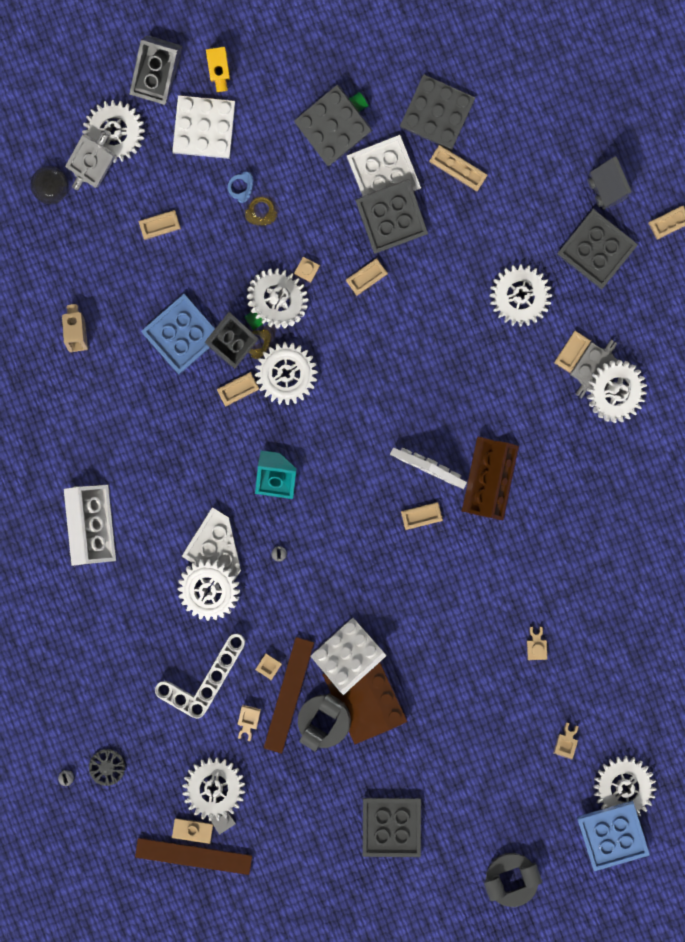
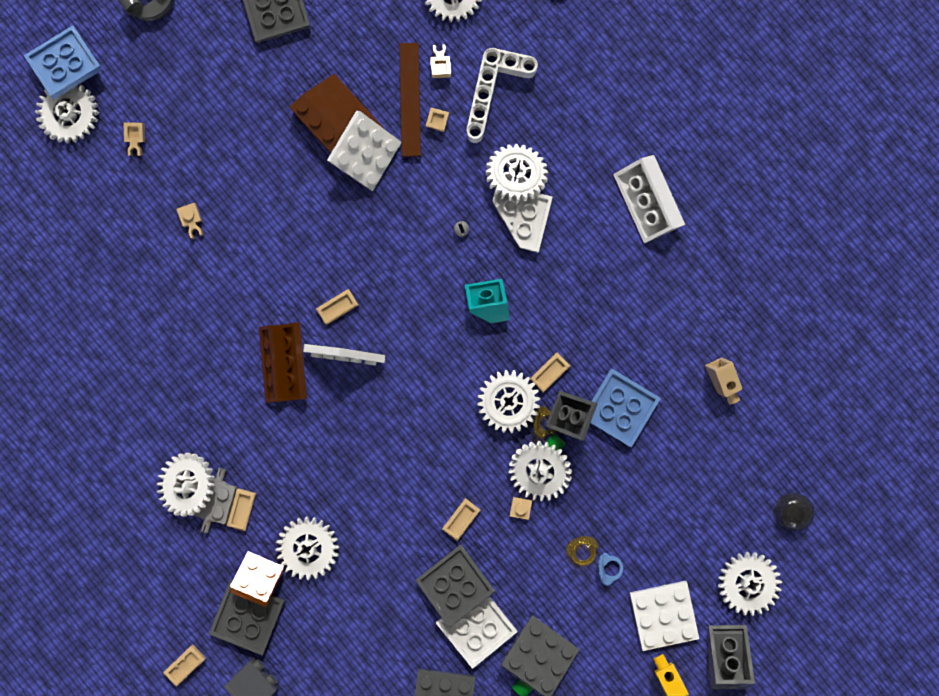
camera: 160 degrees right, 0 degrees up
(90, 161) = (763, 547): light grey plate -> none
(159, 225) = (675, 506): tan tile -> none
(314, 737) = (373, 67): dark grey piece -> none
(458, 168) = (406, 653): tan tile -> none
(576, 281) = (256, 579): none -> brick

